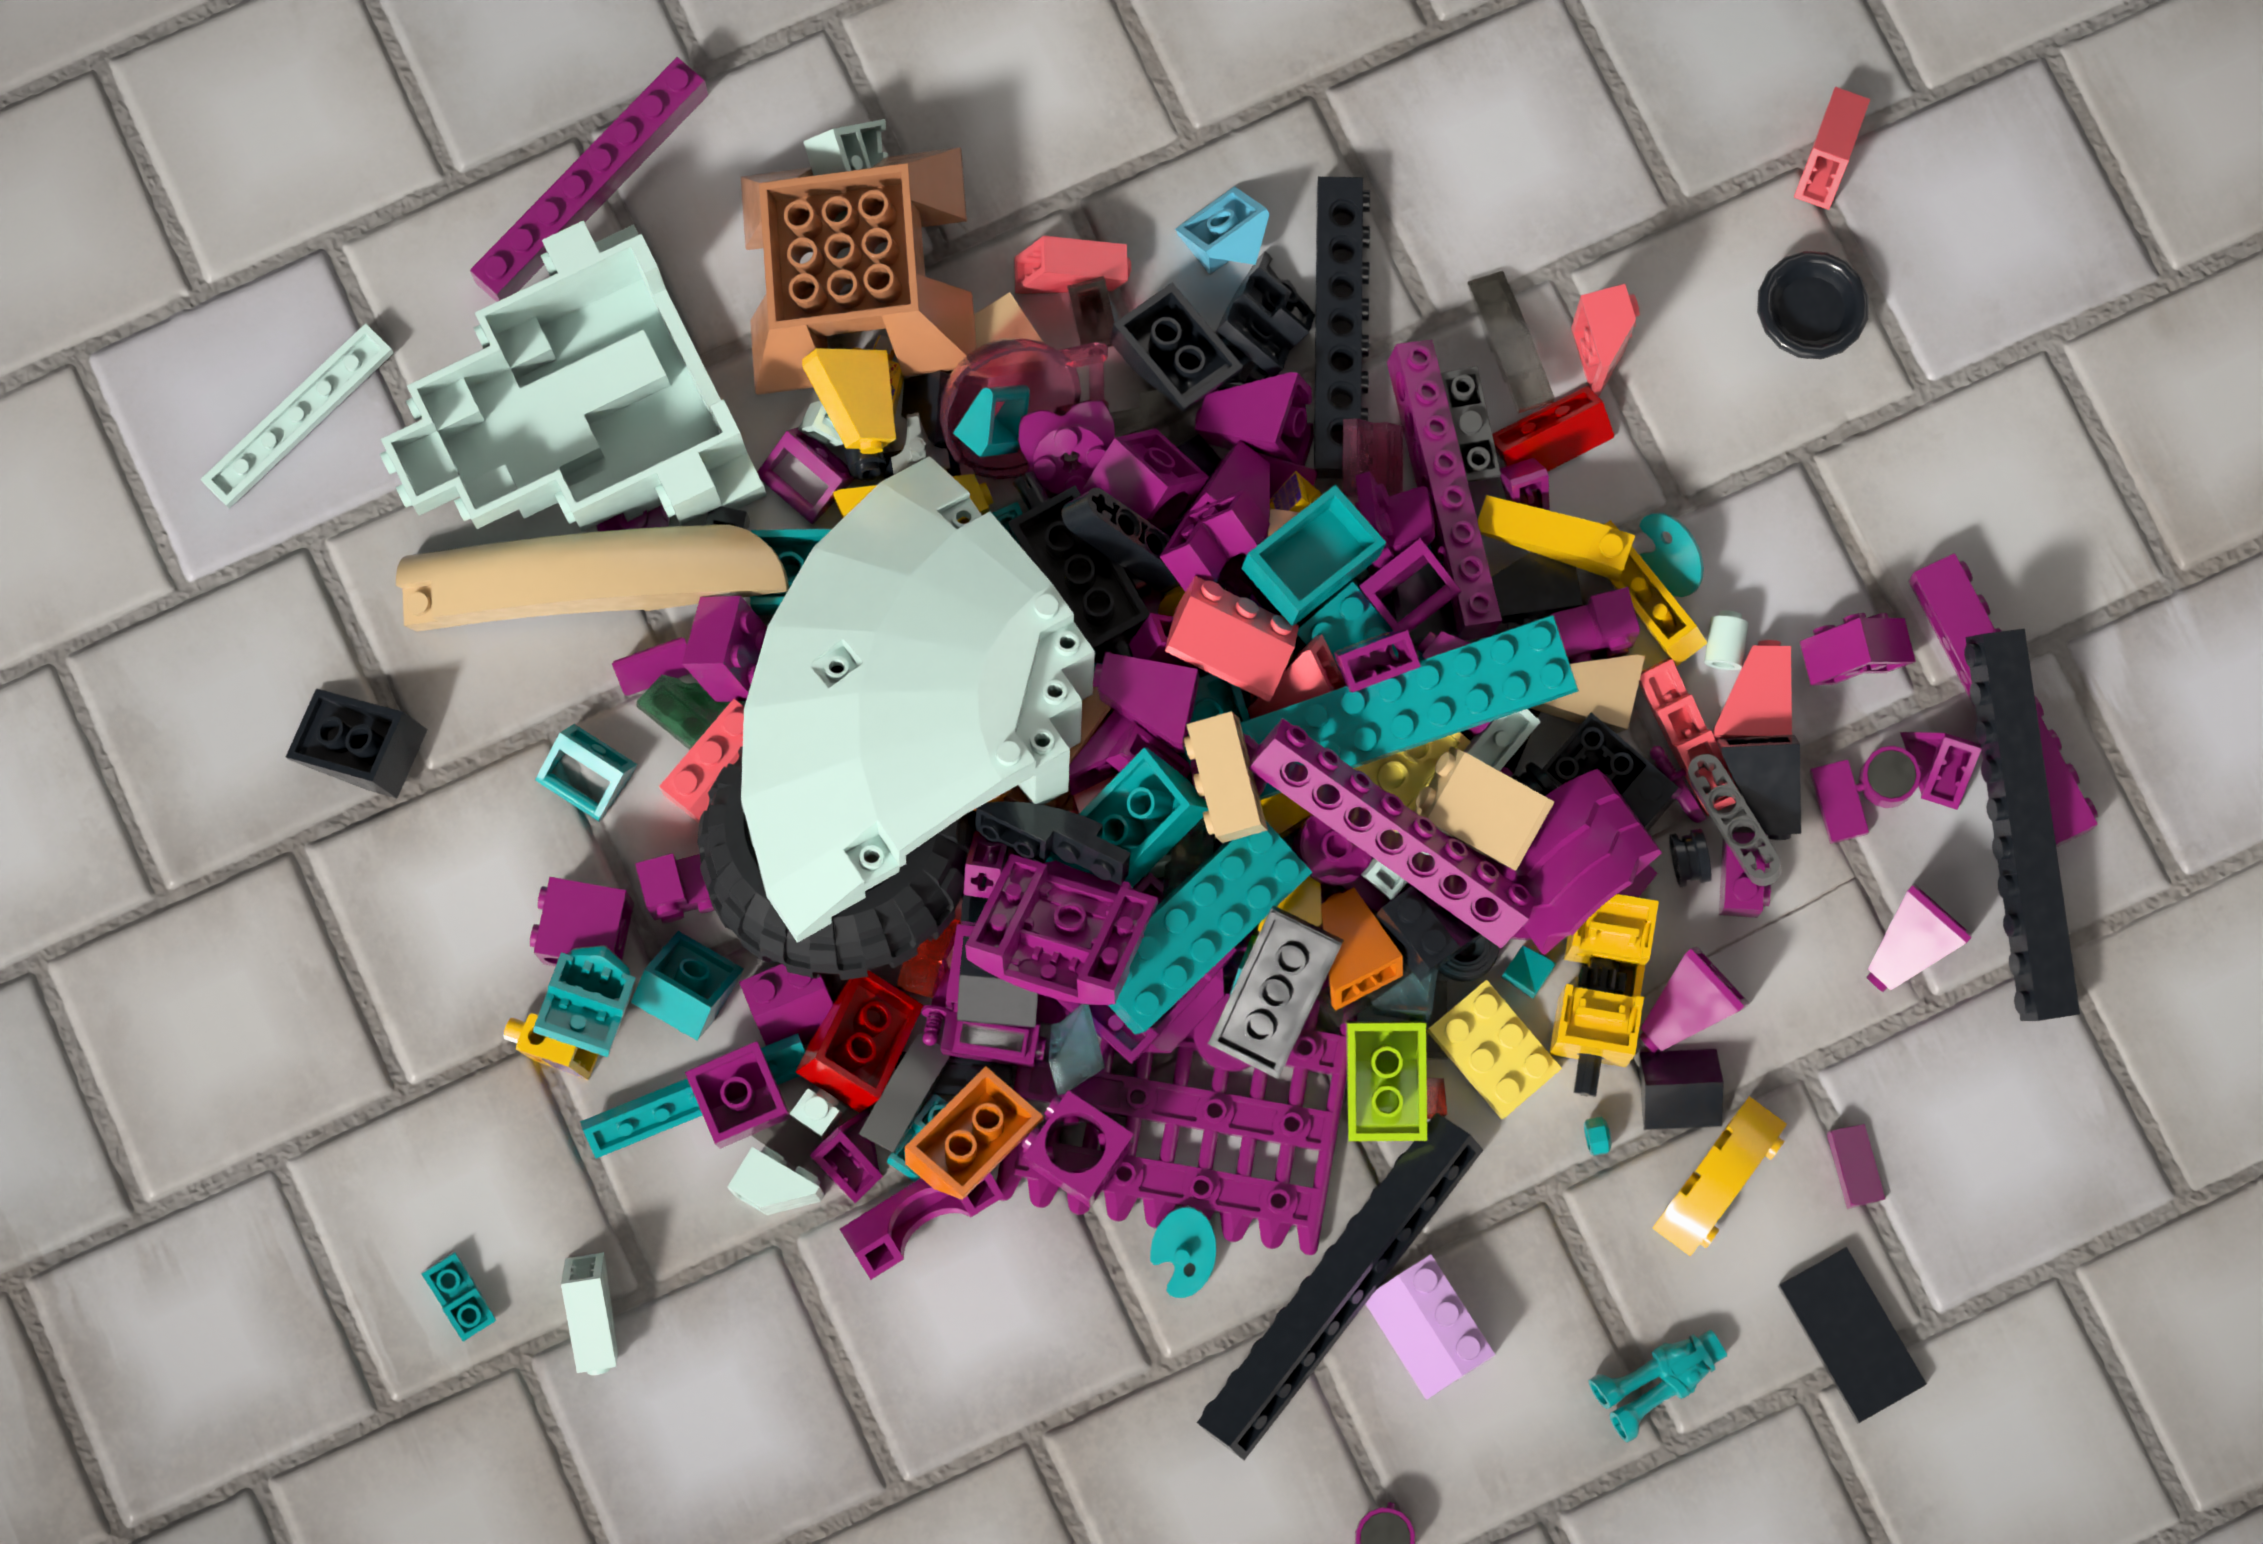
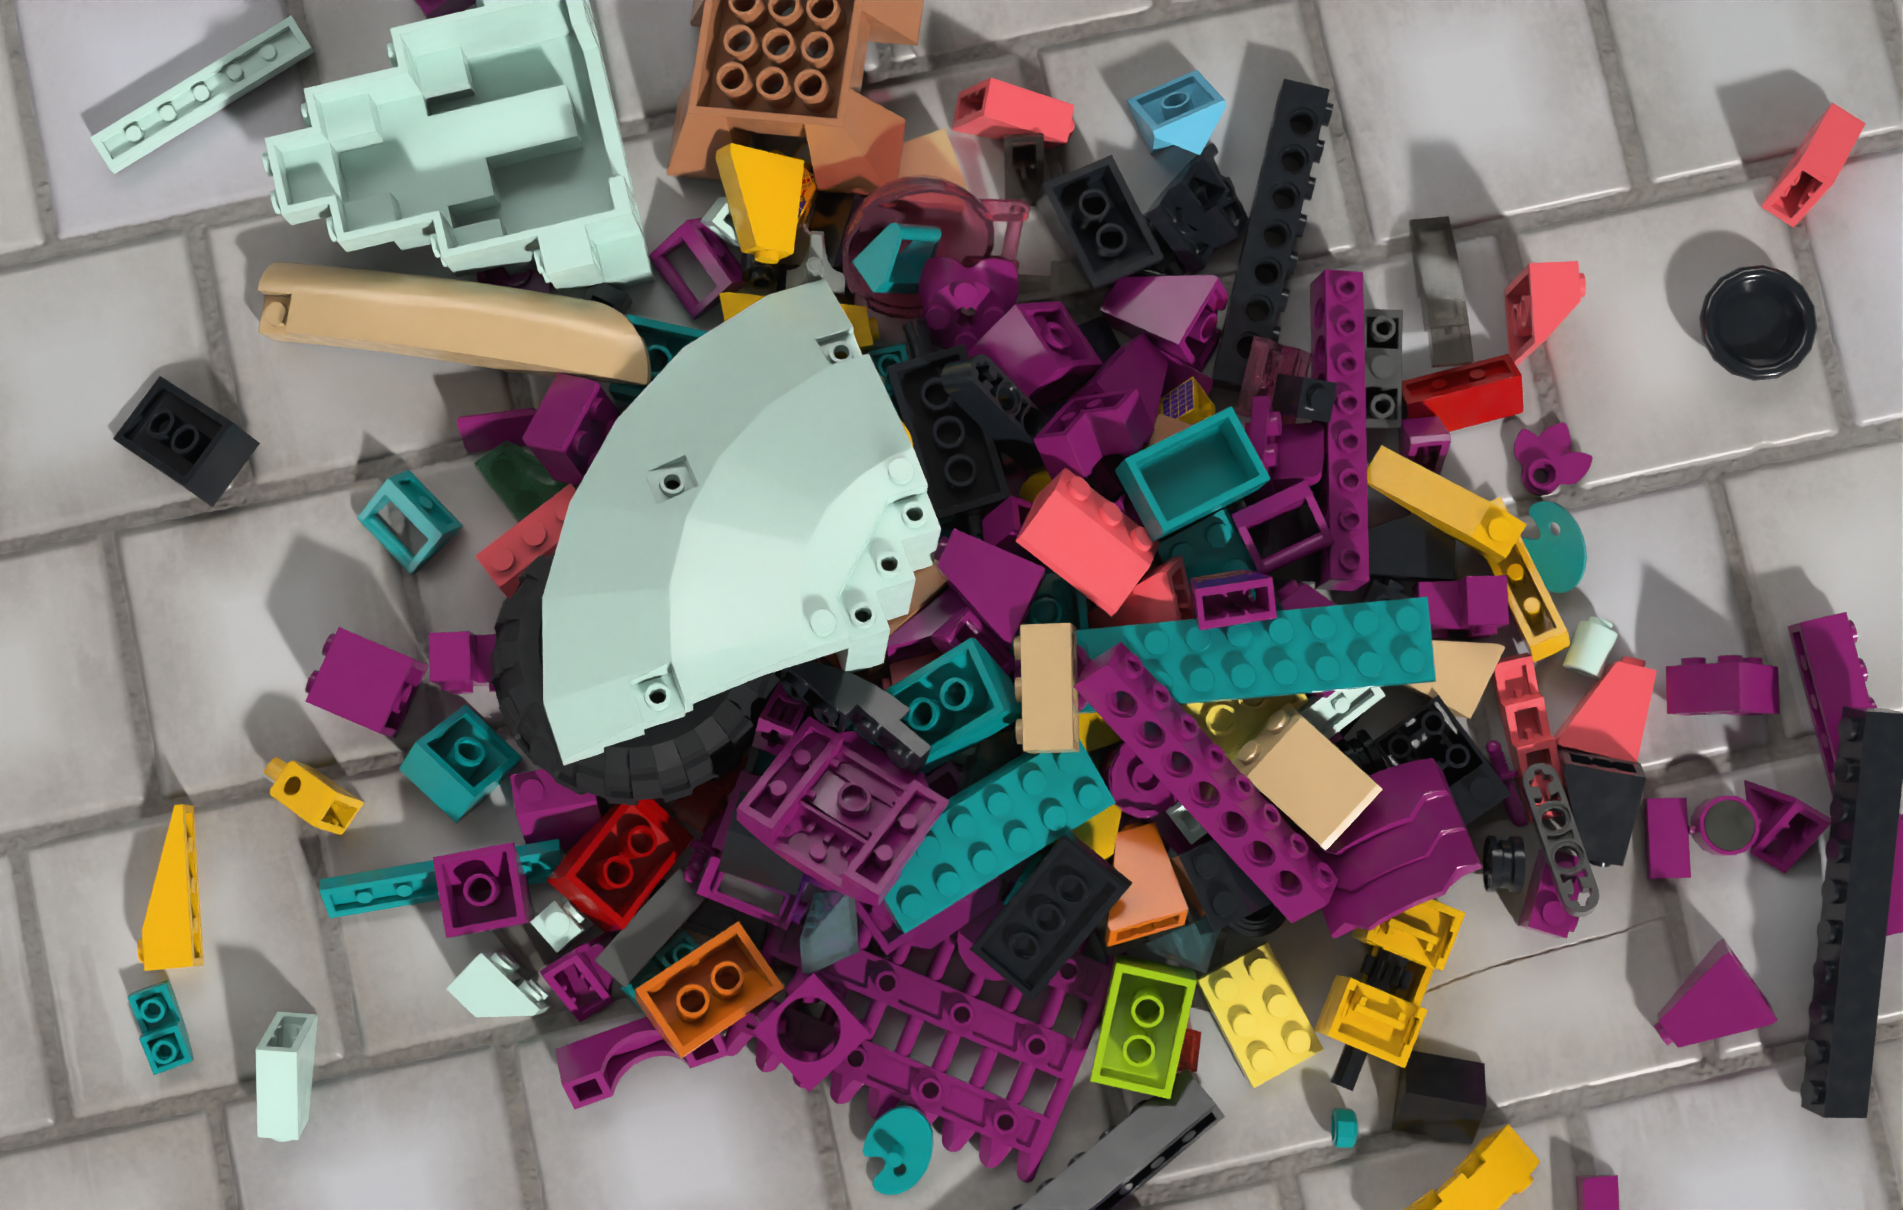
camera: 10 degrees right, 5 degrees up
(447, 1188) = (174, 914): none -> yellow slope
(586, 999) = (345, 763): teal piece -> none
(1403, 466) = (1304, 397): none -> black brick
(1528, 971) = (1312, 941): teal slope -> none
(1649, 471) = (1551, 455): none -> magenta plate
(1690, 1002) = (1473, 1014): slope -> none

